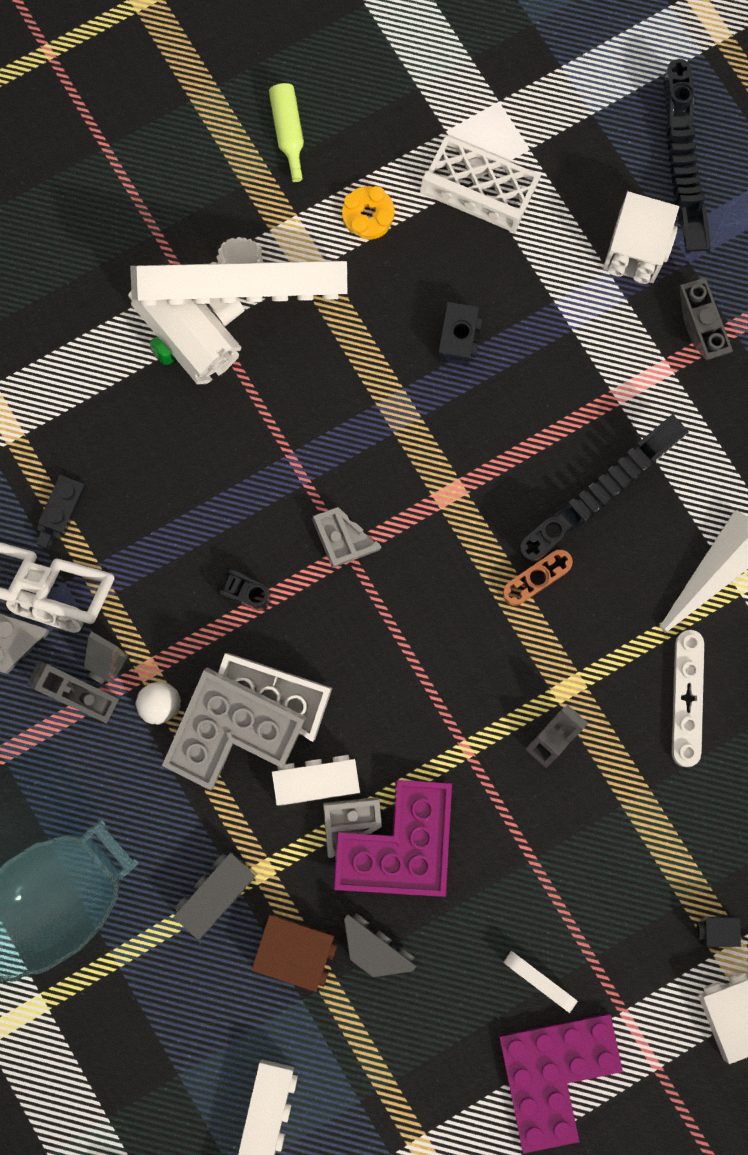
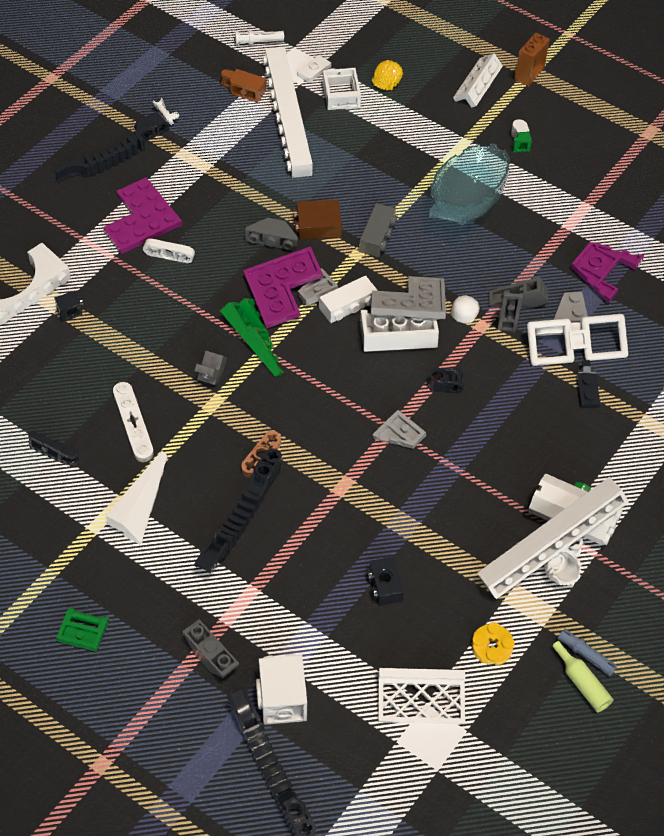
camera: 155 degrees right, 25 degrees down
(270, 167) = (590, 654): none -> sand blue pin
(475, 803) = (248, 325): none -> green wedge

